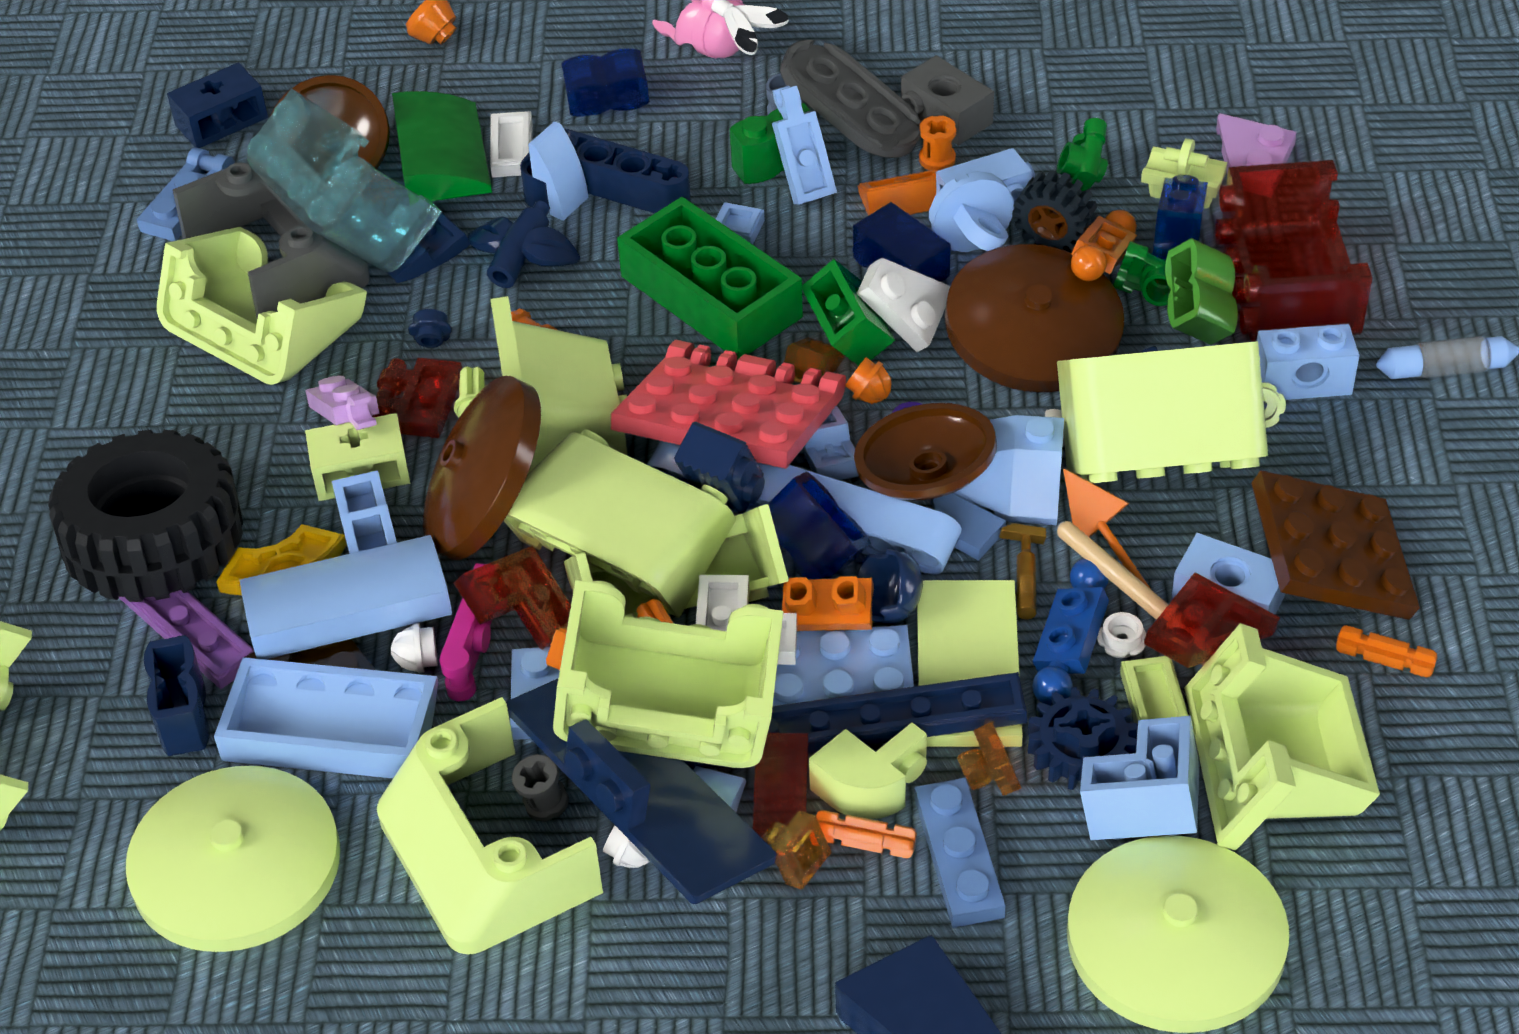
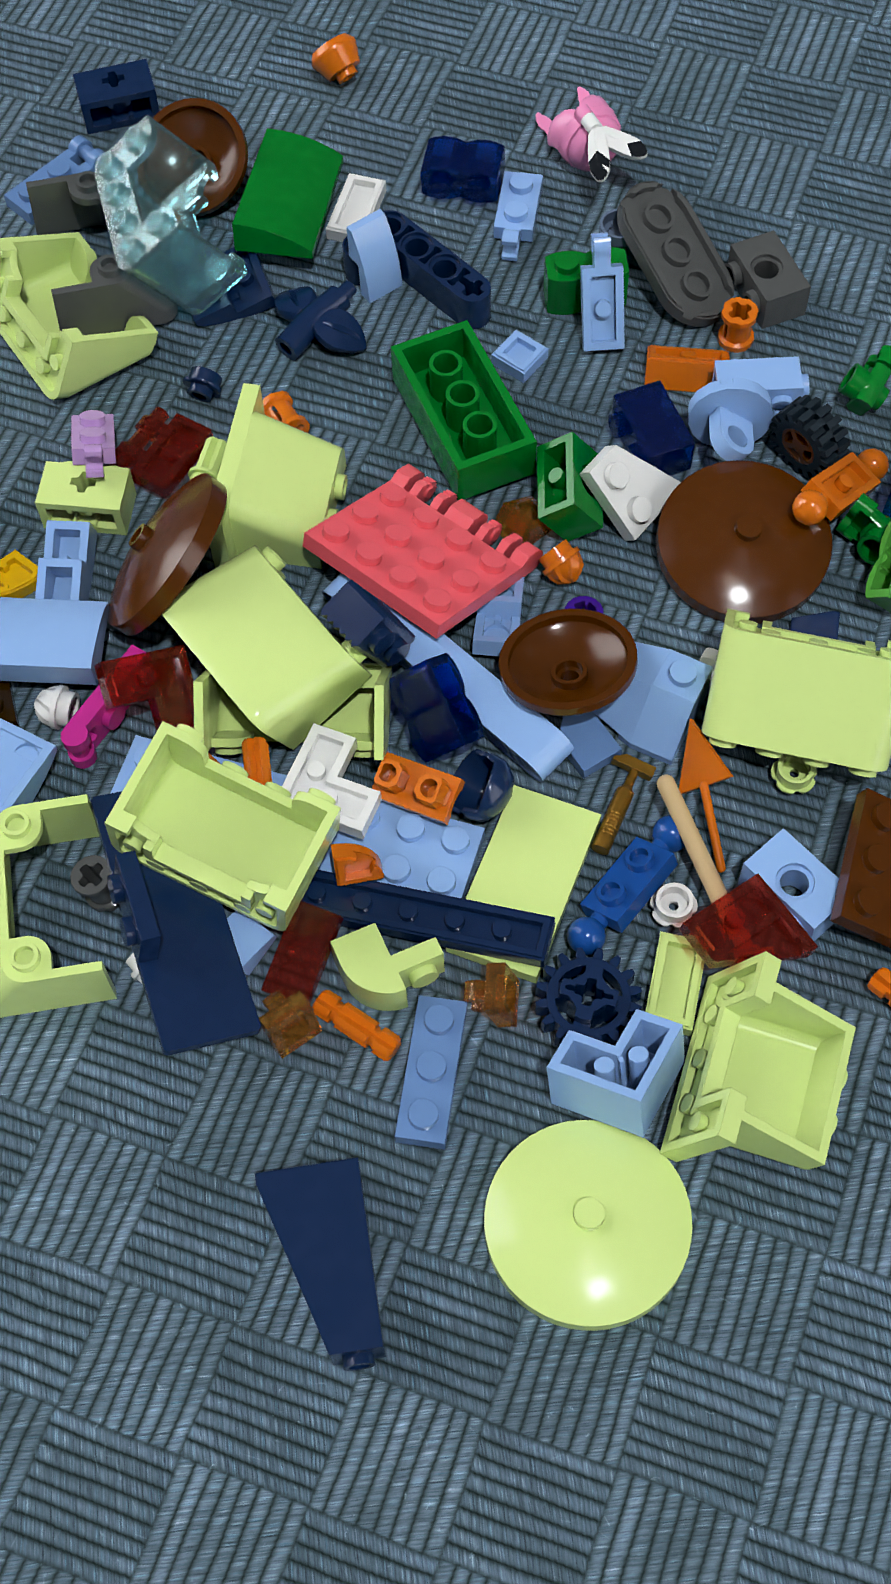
camera: 20 degrees right, 15 degrees up
(674, 106) = (517, 211): none -> light blue plate
(799, 685) = (355, 864): none -> orange tile
(1178, 492) = (781, 773): none -> yellowish green plate

